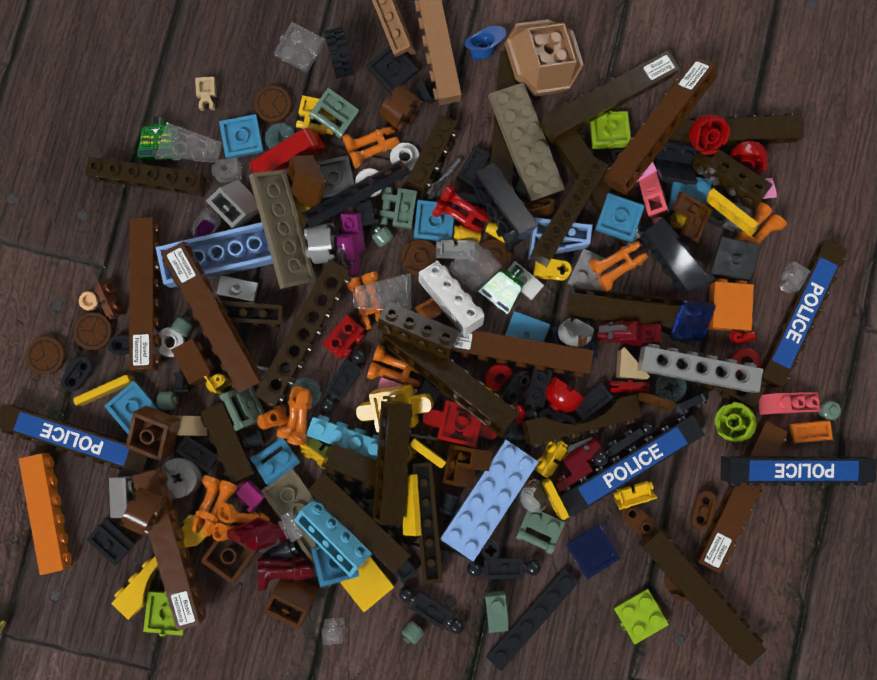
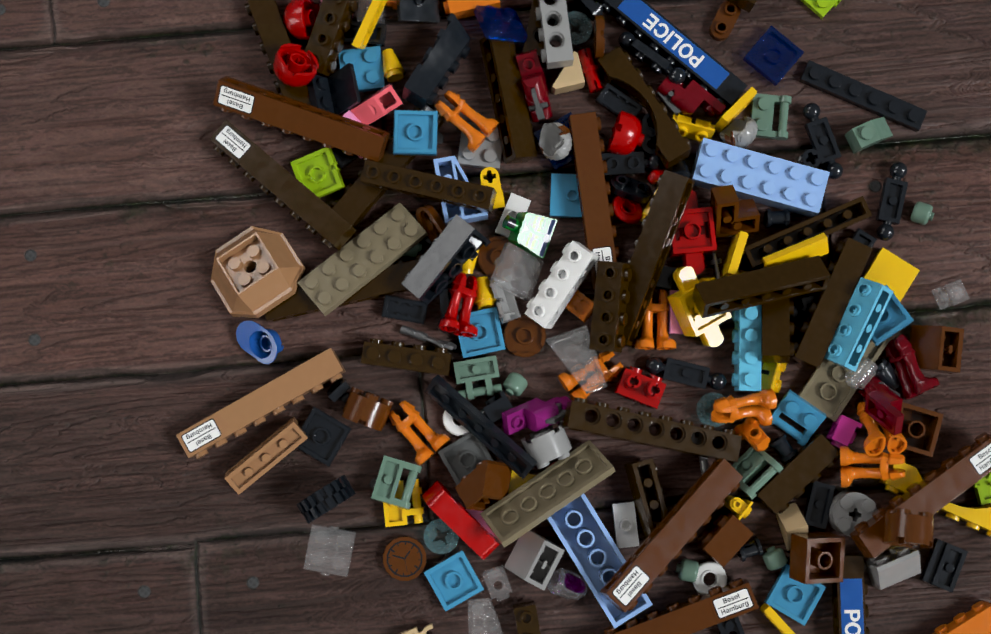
camera: 110 degrees left, 0 degrees up
(408, 148) = (406, 391): white piece -> none
(626, 497) = (706, 34): yellow hinge -> none
(695, 213) = (387, 53): reddish brown tile -> none

